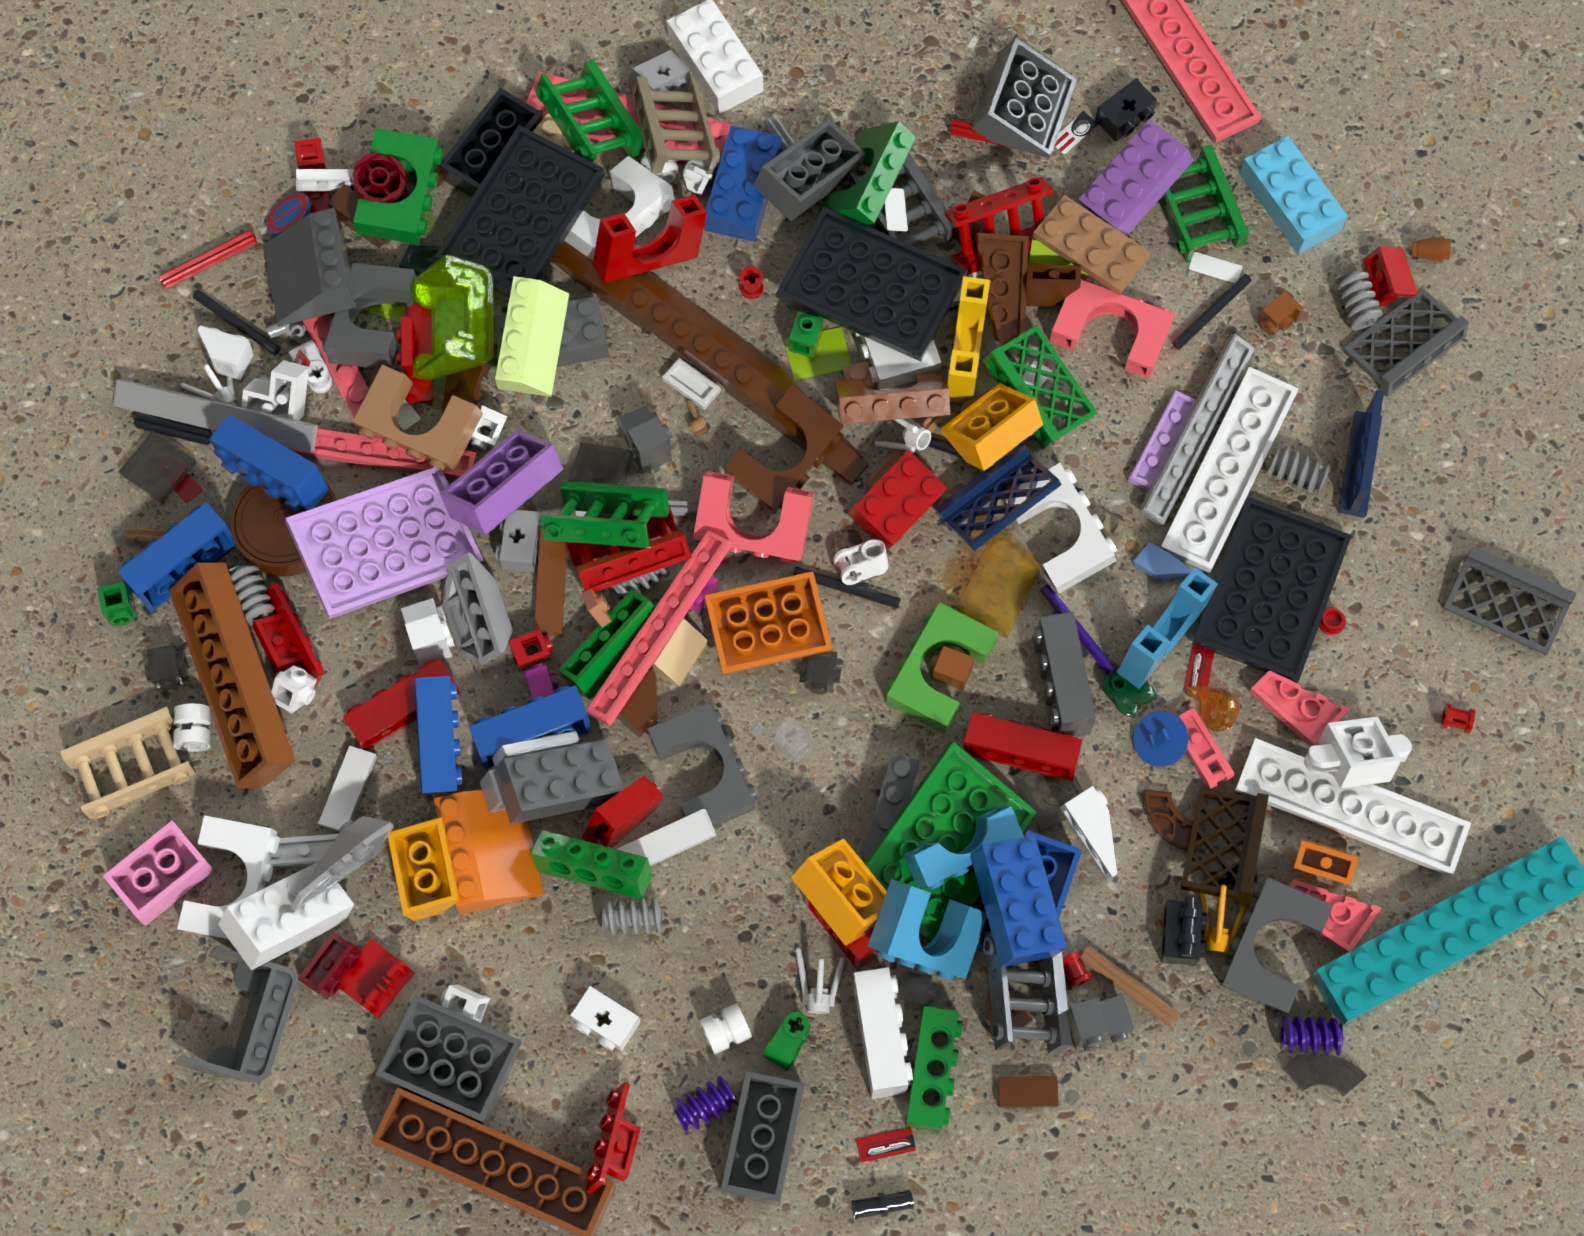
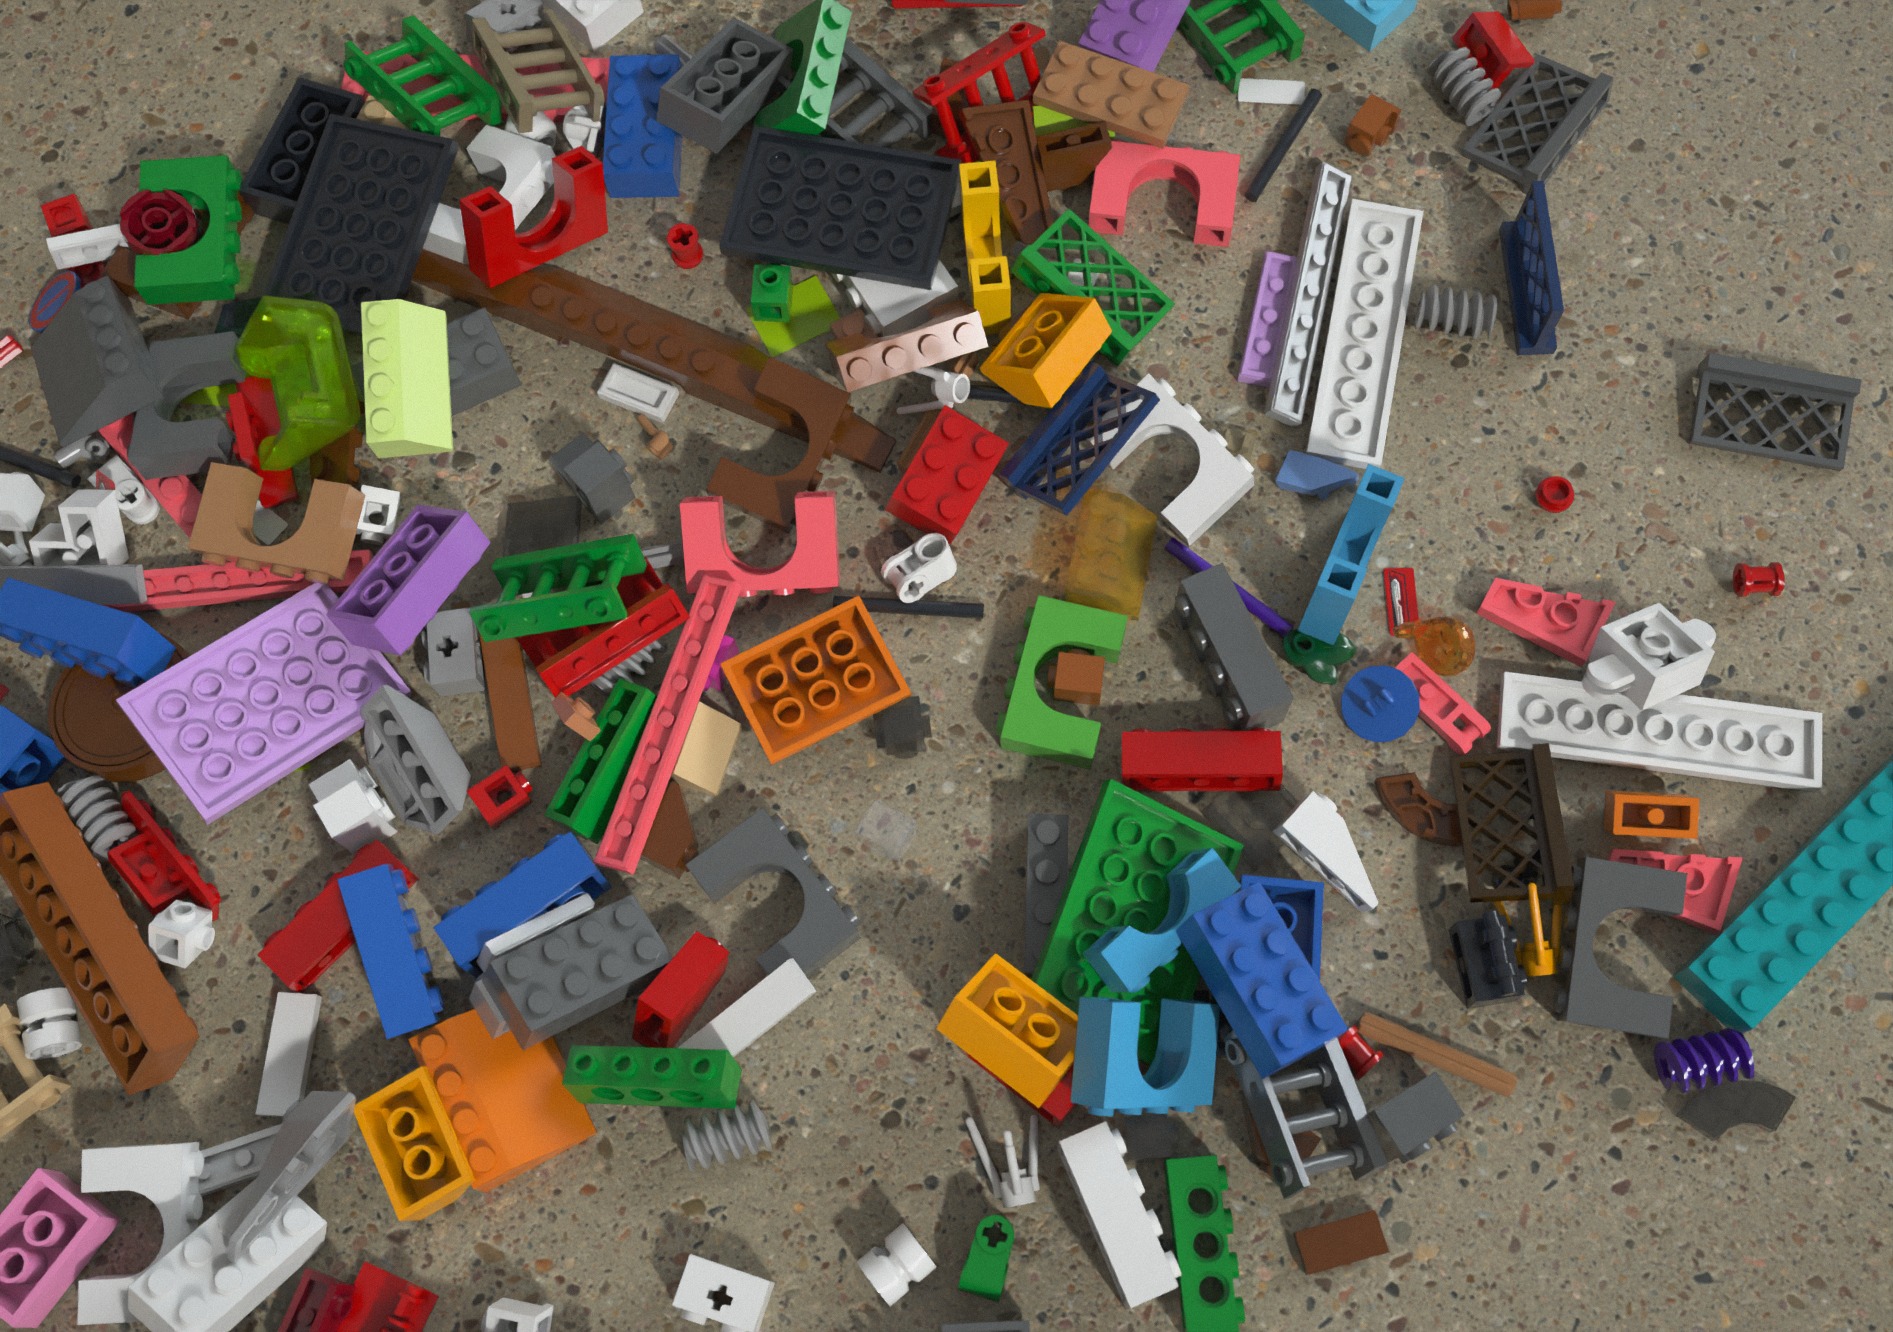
camera: 10 degrees left, 0 degrees up
(540, 681) = (524, 835): magenta brick -> none
(896, 210) = (849, 111): white sticker -> none
(1272, 589) = (1470, 473): black plate -> none

